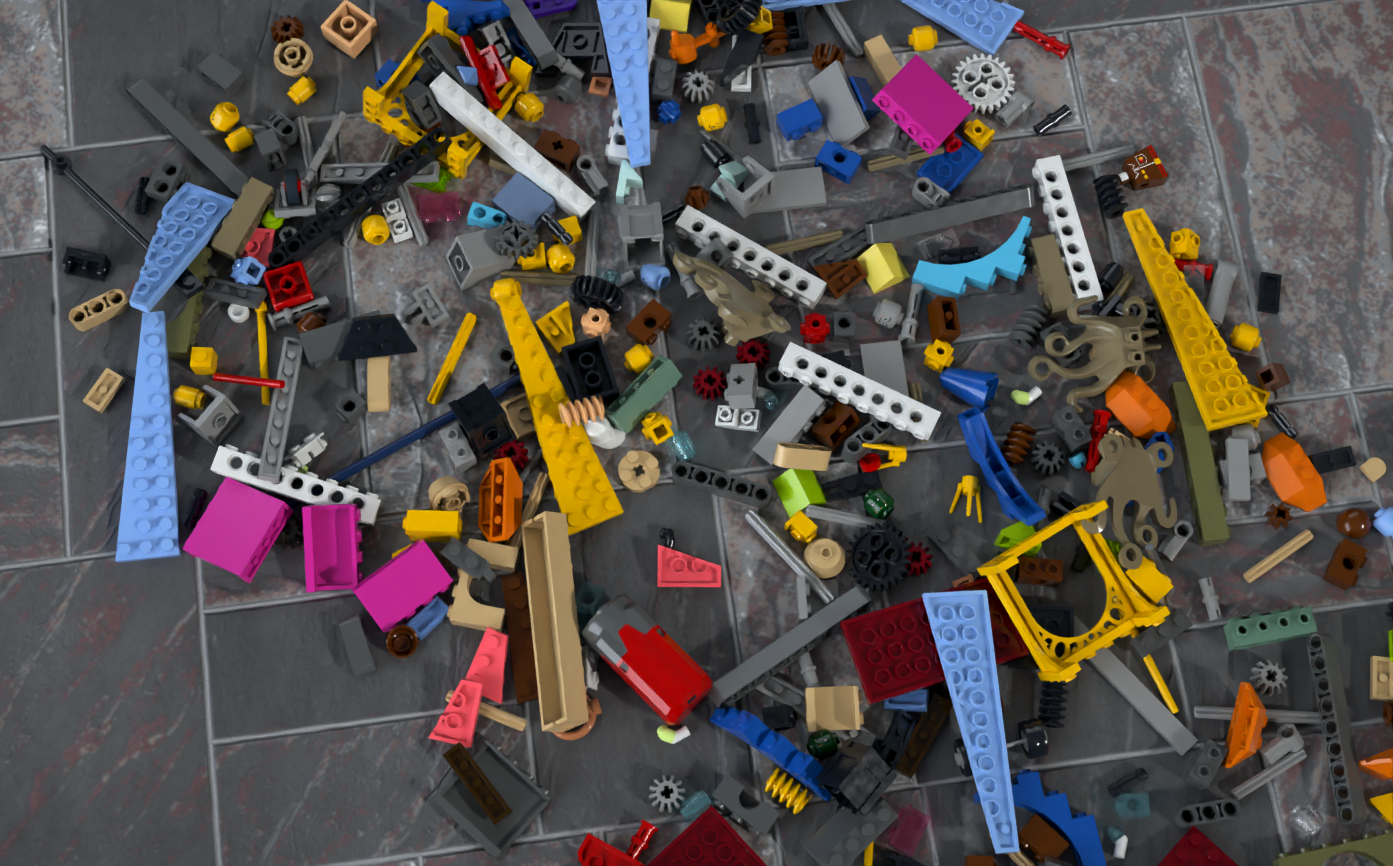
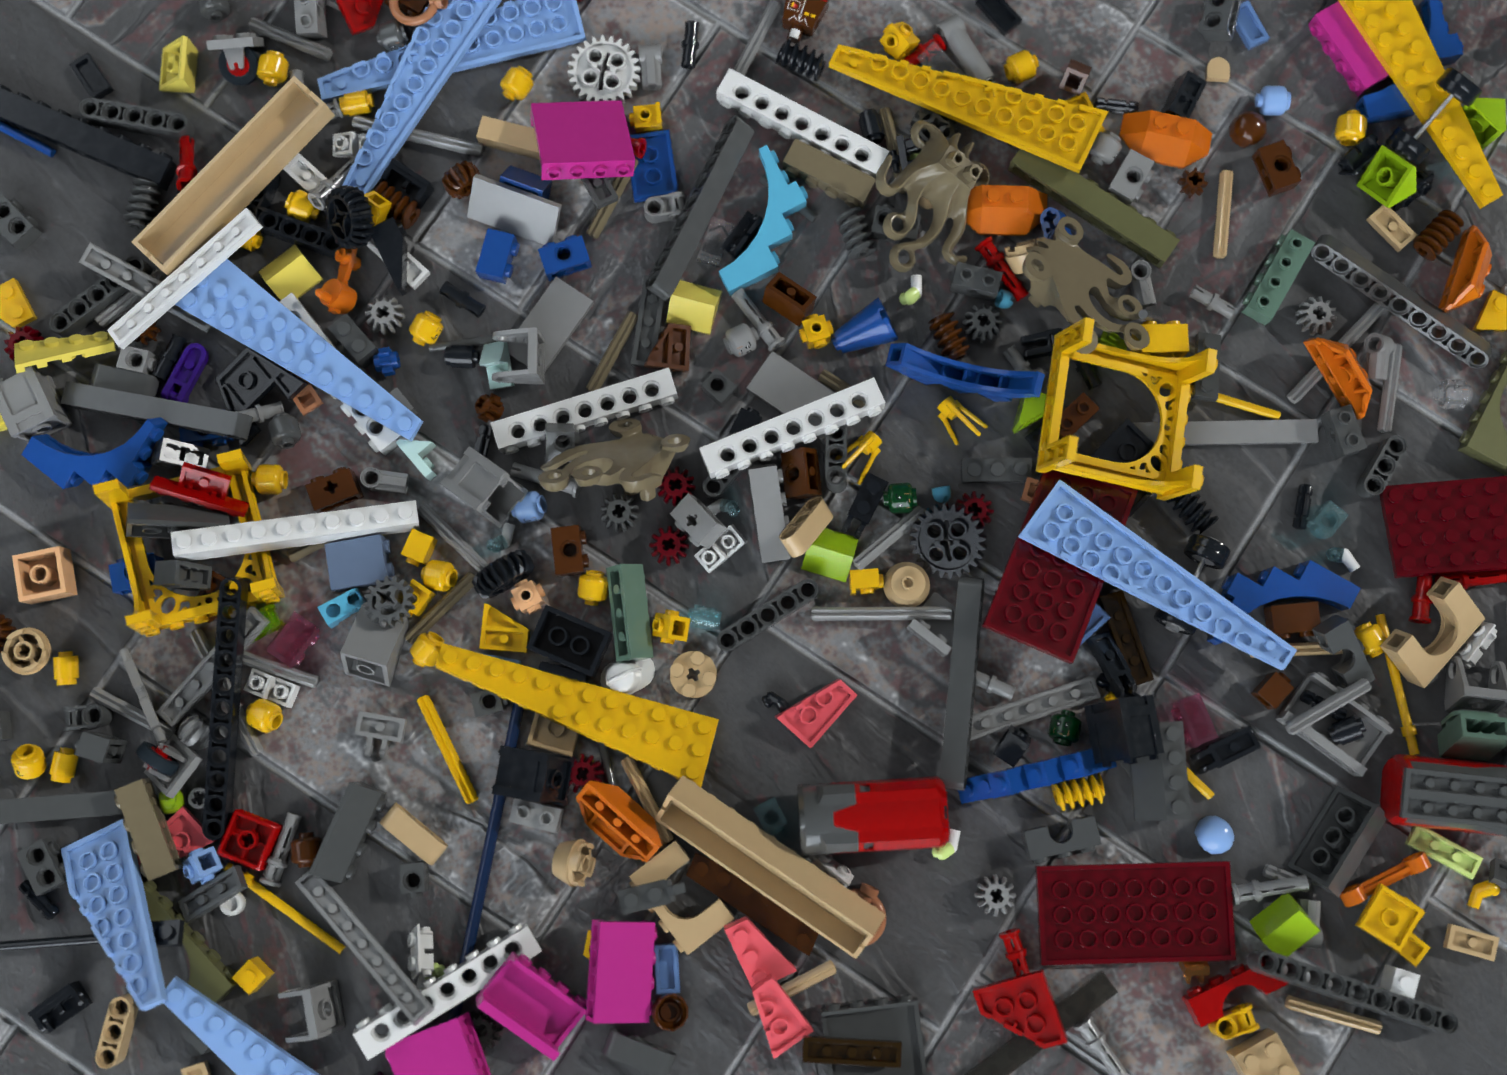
camera: 45 degrees left, 10 degrees up
(189, 397) = (276, 1016): yellow brick -> none
(249, 380) = (309, 951): red bar -> none
(375, 338) = (371, 805): black wing -> none
(432, 525) = (590, 899): yellow brick -> none
(468, 75) = (193, 511): medium blue slope -> none
(556, 228) = (410, 556): black axle -> none
(583, 411) = (602, 681): light nougat piece -> none
(695, 805) = (1025, 880): clear light blue brick -> none
(814, 328) = (701, 421): red brick -> none
(833, 708) = (1043, 693): tan panel -> none
(870, 462) = (857, 472): red tile -> none
(908, 527) = (941, 493): none -> medium azure hinge
(1237, 469) = (1130, 179): light grey tile -> none

